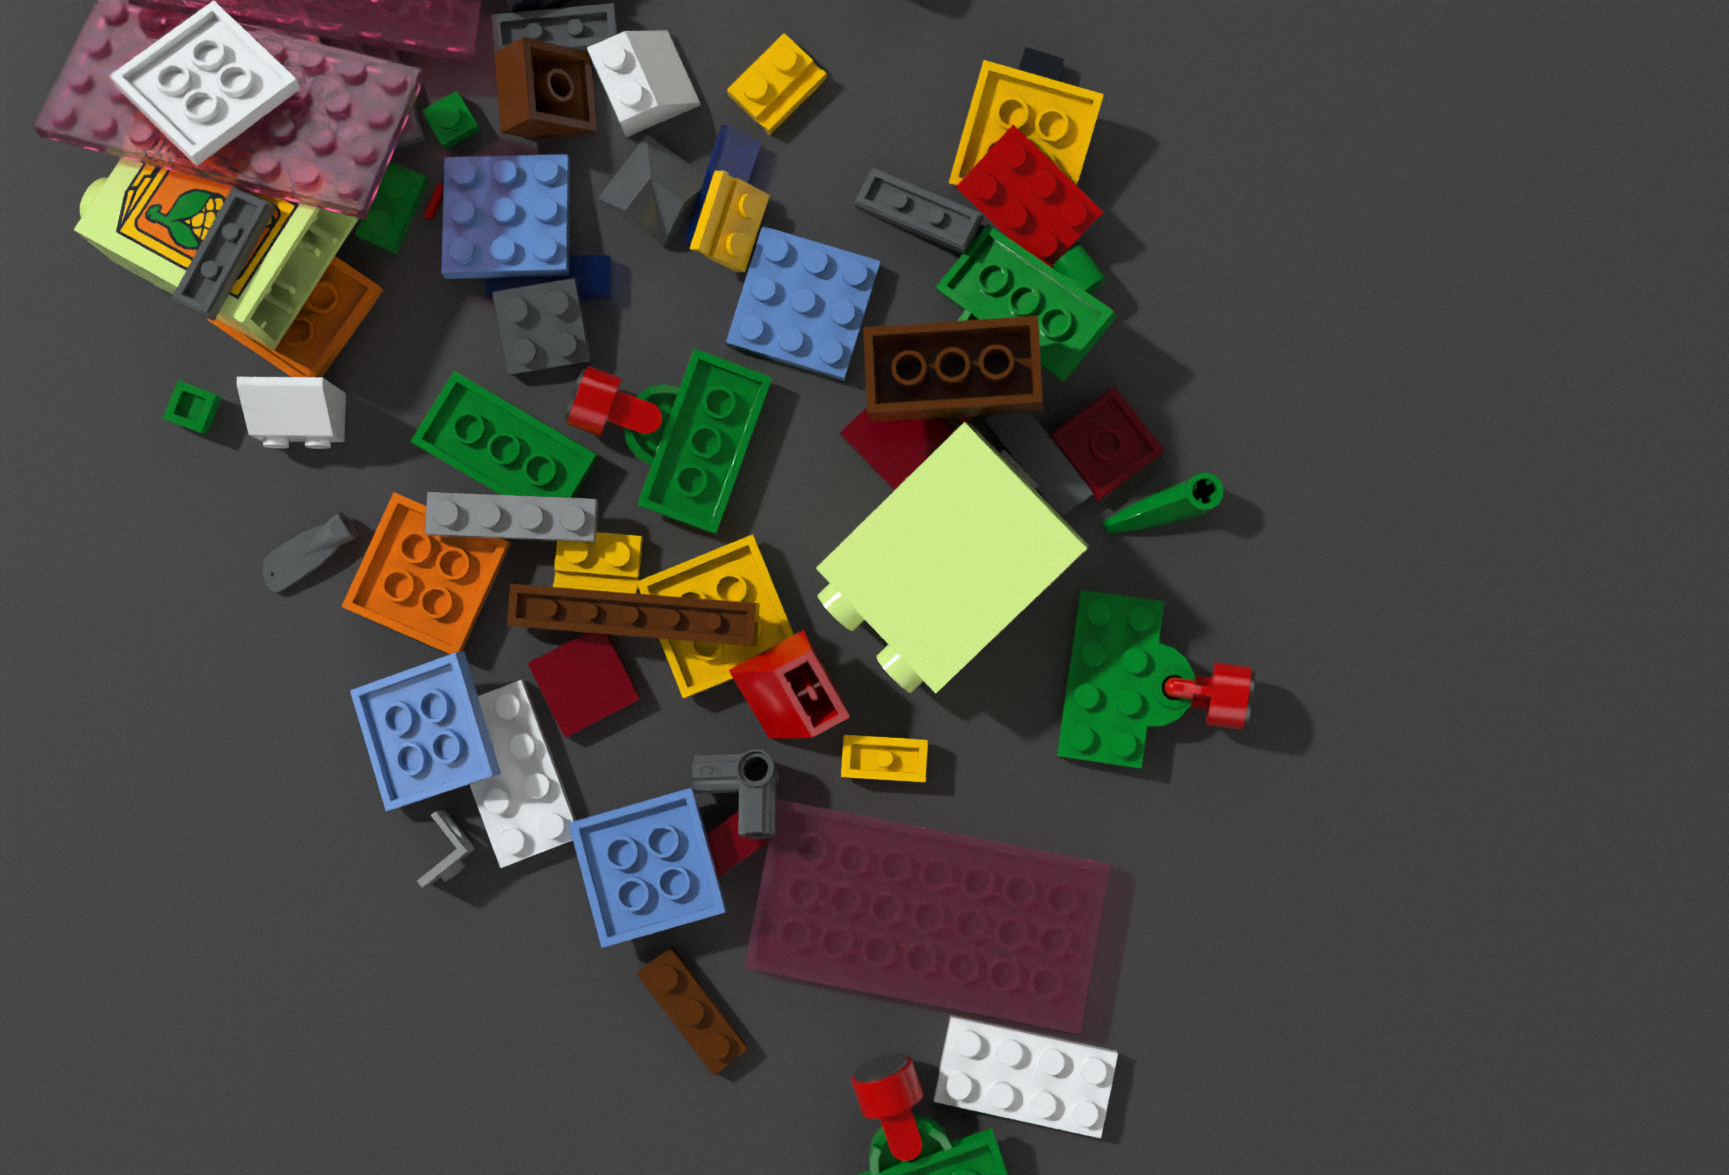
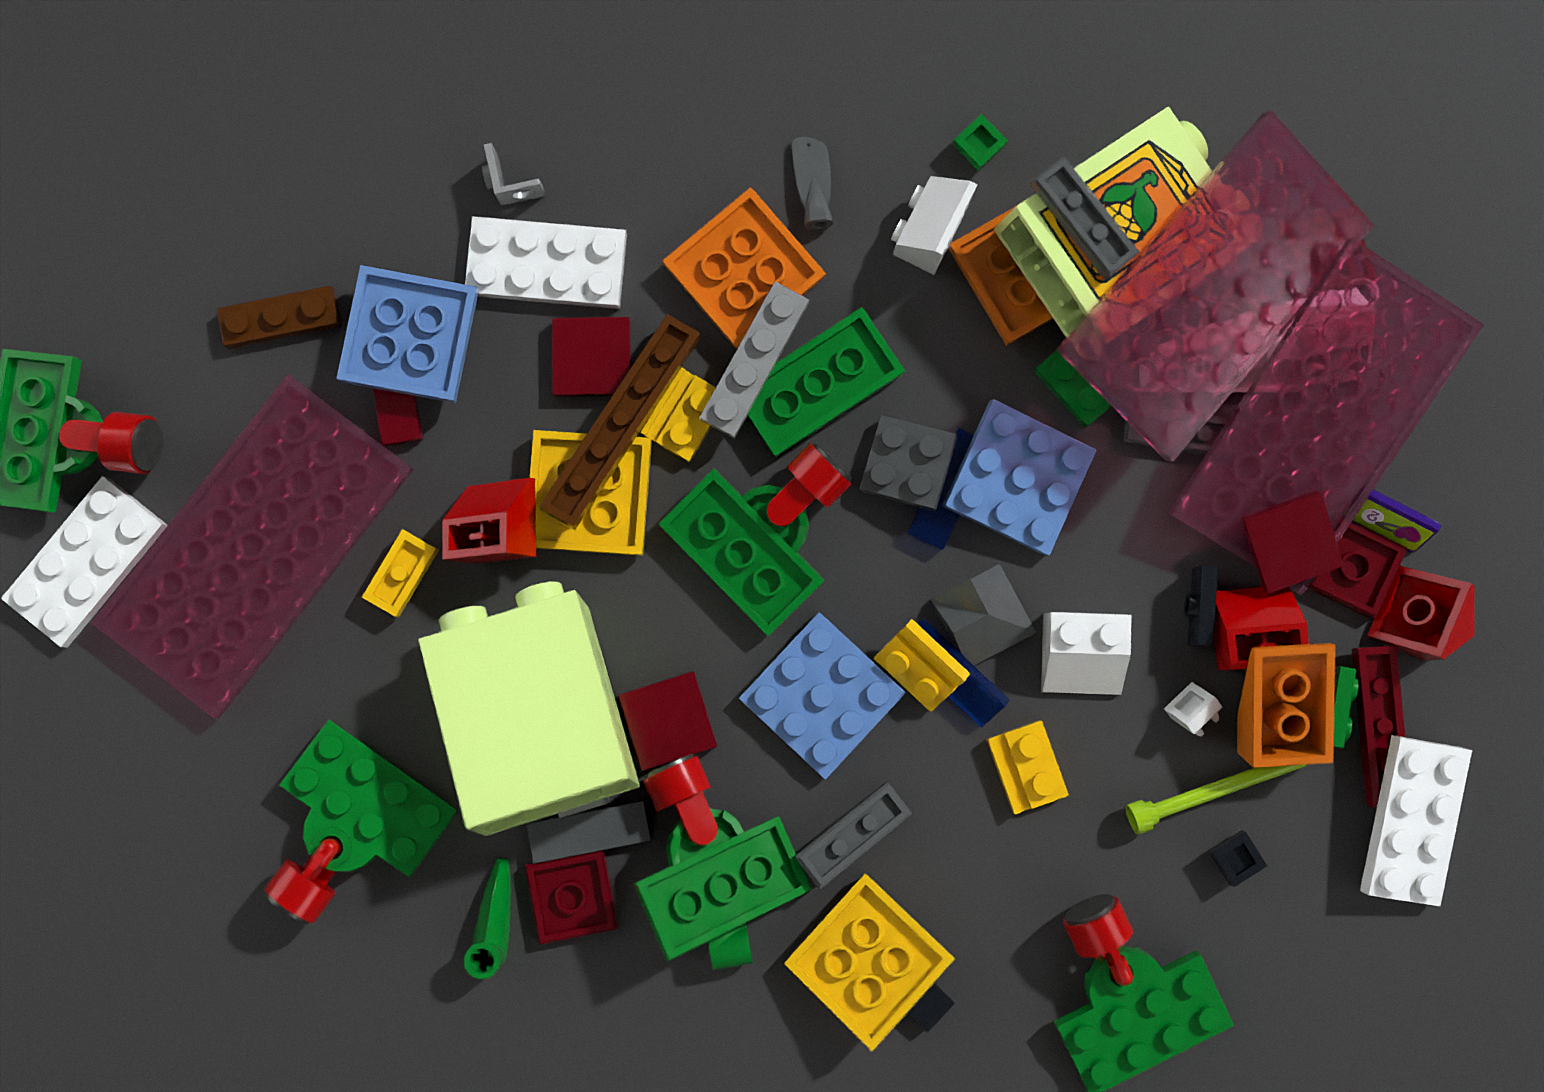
camera: 115 degrees right, 0 degrees up
(205, 82) = (1241, 269): white plate -> none
(425, 731) = (610, 206): medium blue plate -> none
(434, 202) = (1063, 423): red piece -> none
(451, 120) = (1128, 471): green plate -> none
(544, 90) = (1114, 562): reddish brown slope -> none
(566, 27) = (1164, 596): dark grey plate -> none
(756, 798) = (416, 448): dark grey piece -> none
(953, 369) = (683, 792): reddish brown brick -> none
(1029, 197) = (814, 937): red plate -> none

